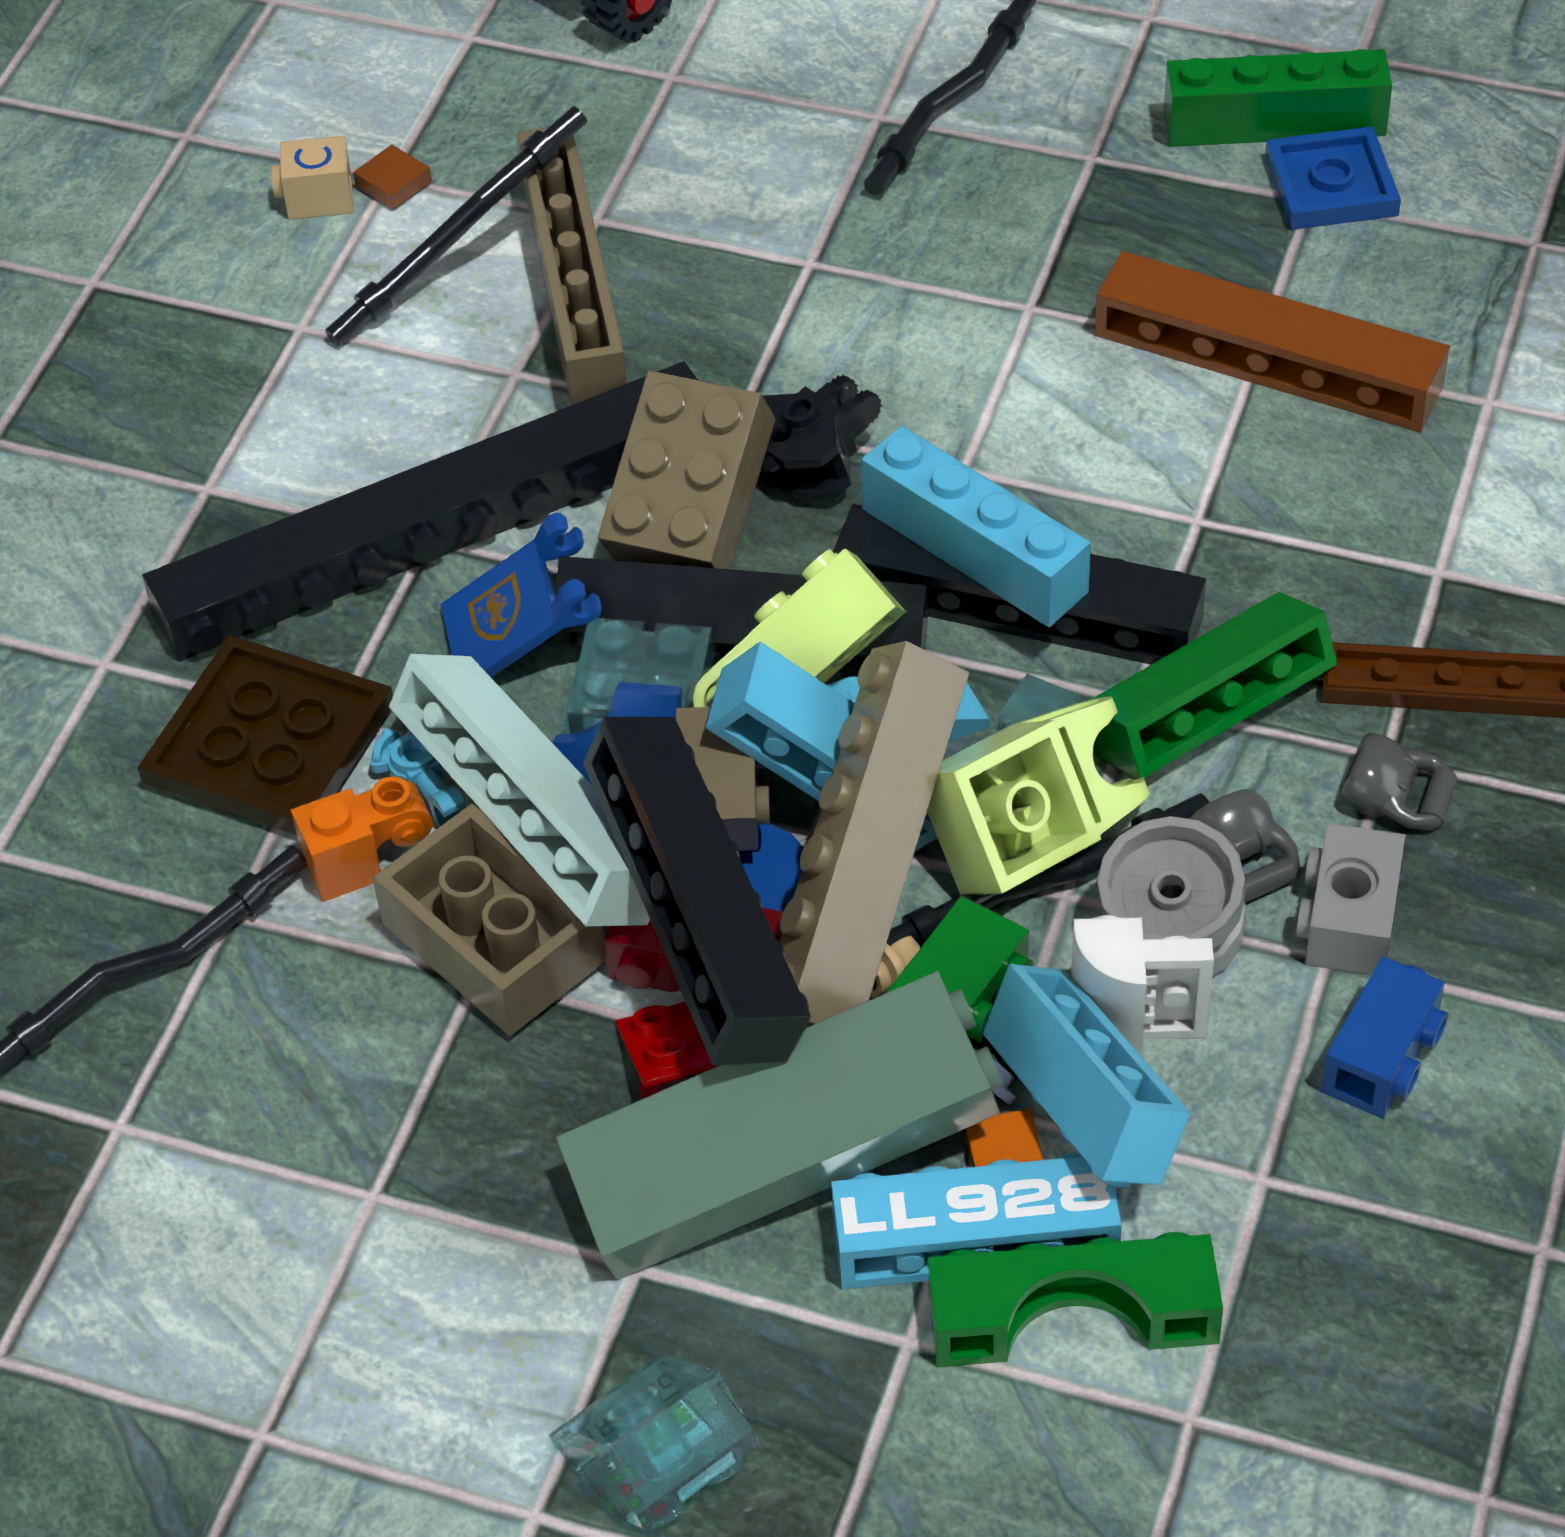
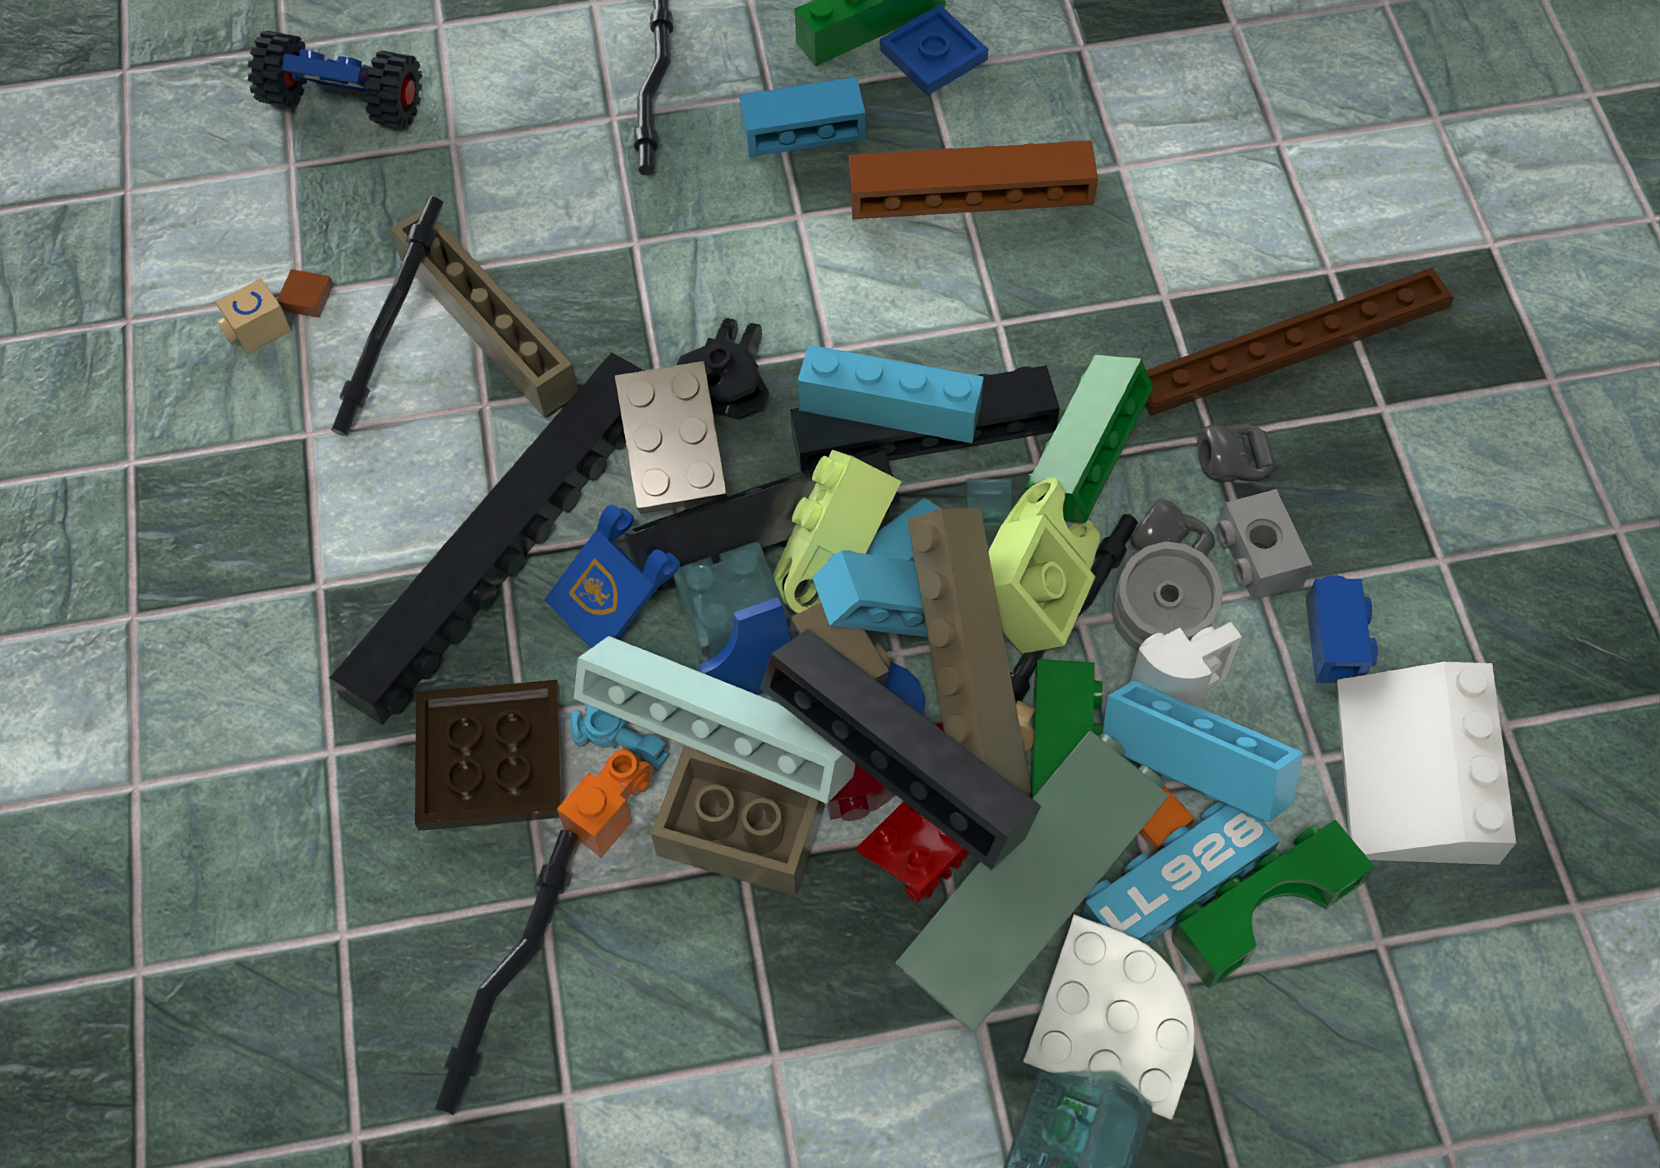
camera: 30 degrees left, 10 degrees up
(787, 1326) = (1116, 1016): none -> plate
(1104, 193) = (803, 117): none -> dark azure brick
(1388, 1239) = (1425, 764): none -> white slope

